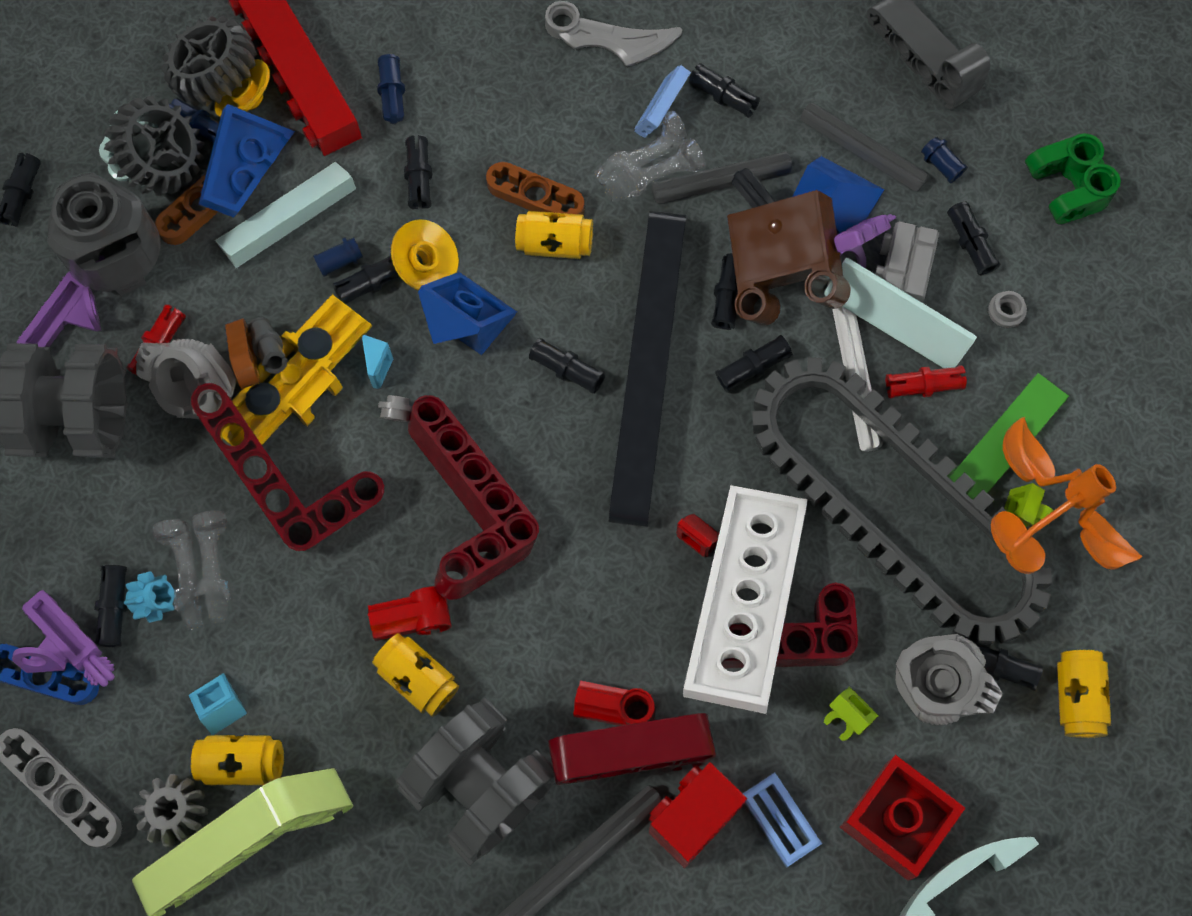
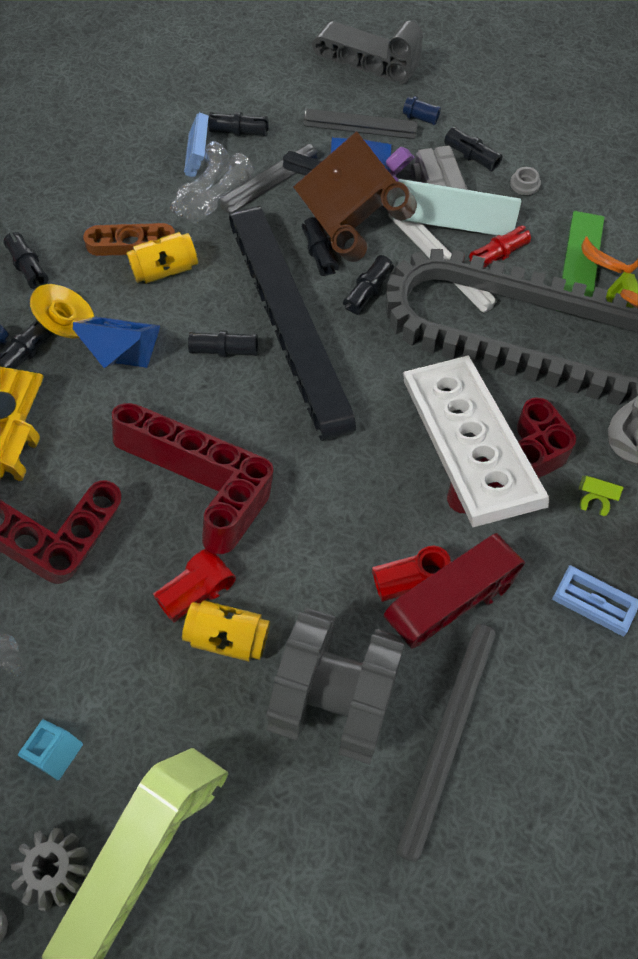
camera: 30 degrees left, 10 degrees down
(259, 754) = (115, 769): yellow piece -> none
(378, 359) = (59, 399): medium azure slope -> none
(395, 408) = (96, 431): light grey plate -> none
(628, 44) = (149, 122): light grey piece -> none
(696, 814) = (535, 622): red brick -> none
(697, 534) = (398, 420): red slope -> none
(1083, 174) = (514, 78): green piece -> none

